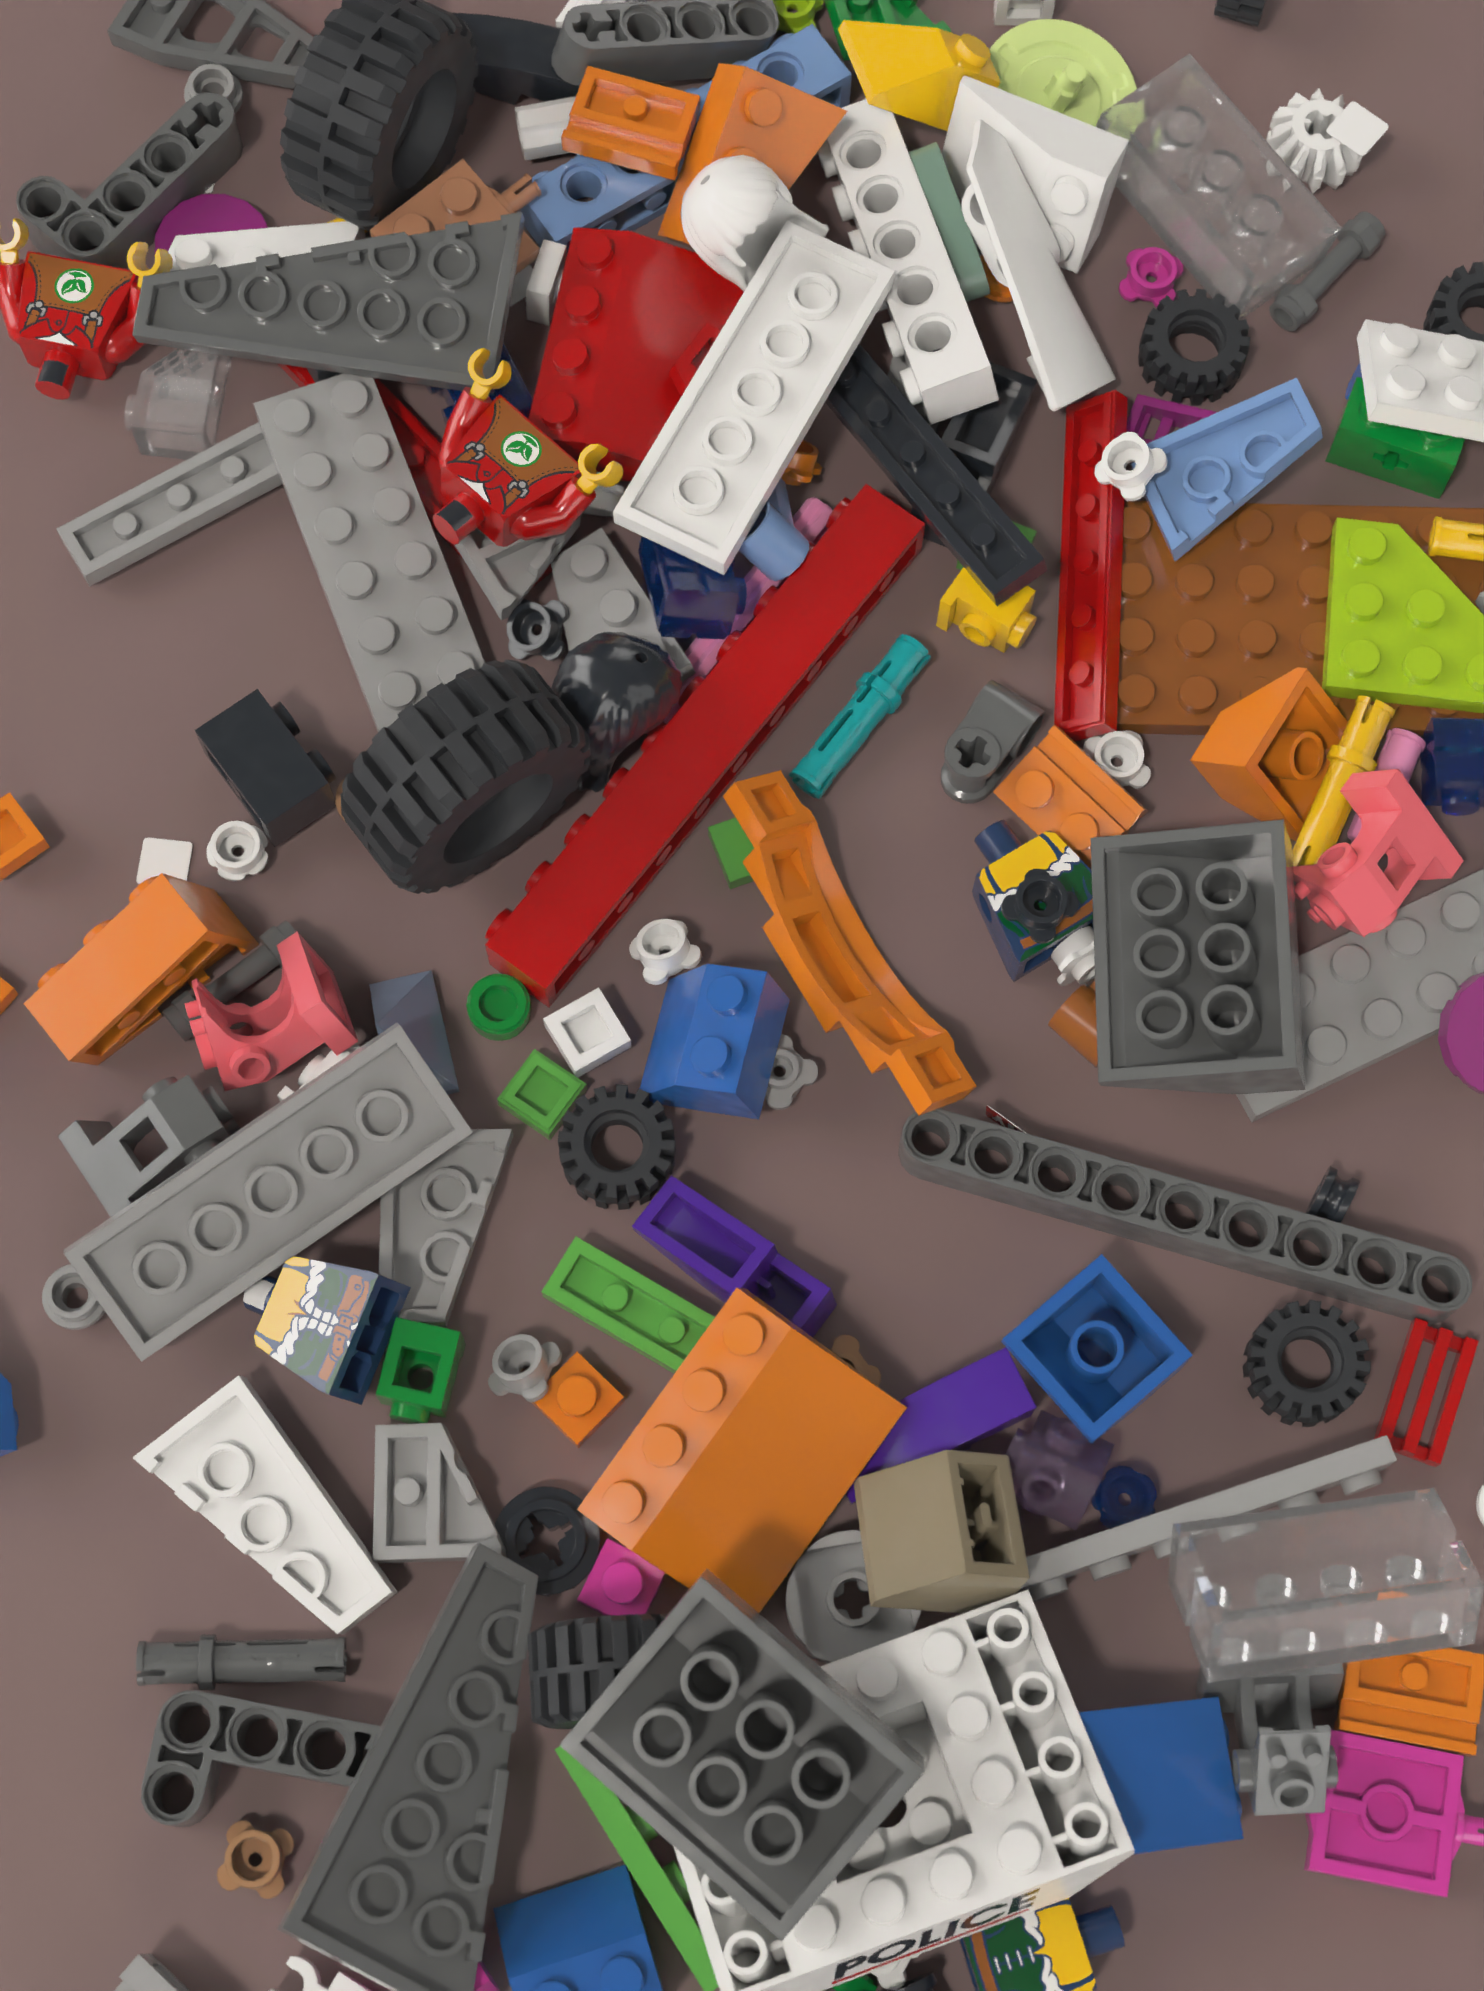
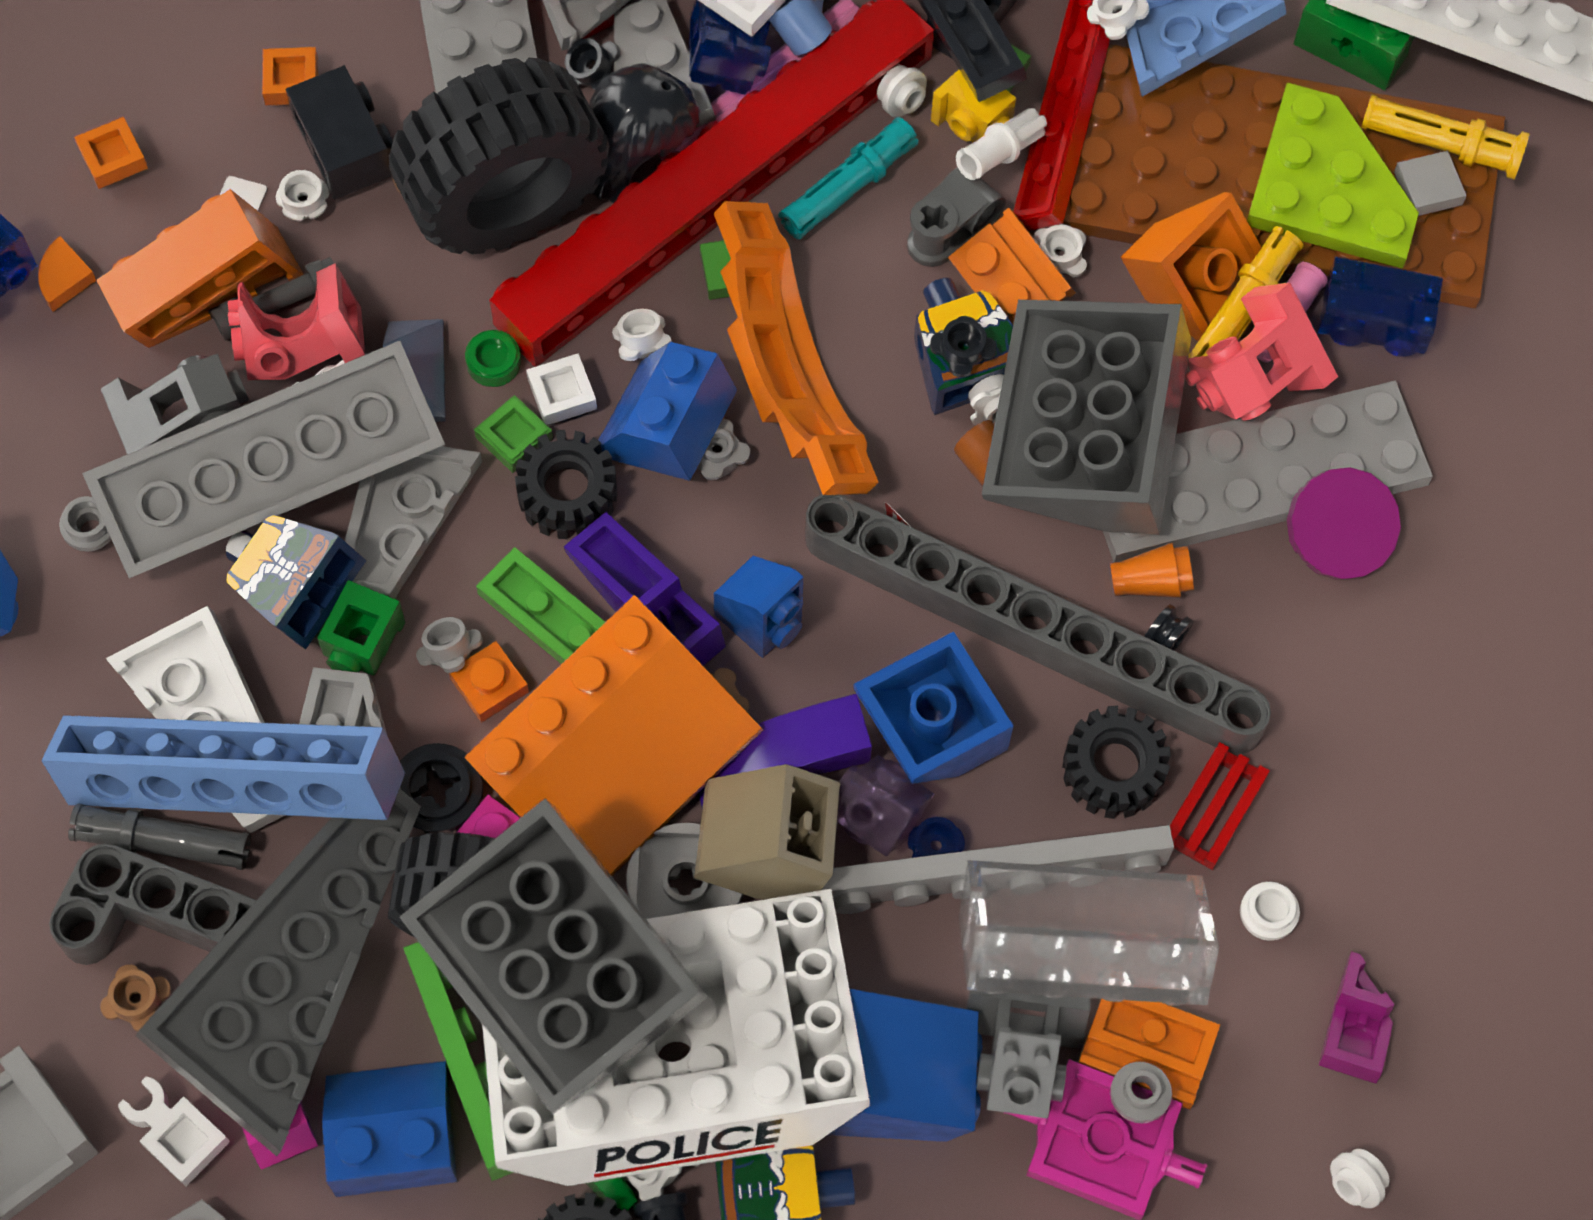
camera: 10 degrees right, 5 degrees down
(188, 702) = (284, 69): none -> orange plate
(306, 1578) = (225, 766): none -> medium blue brick
(872, 1253) = (762, 604): none -> blue slope
(900, 599) = (902, 90): none -> white plate
(1029, 649) = (1000, 144): none -> white axle
(1303, 1130) = (1157, 572): none -> orange cone
(1402, 1769) = (1139, 1109): none -> light grey plate

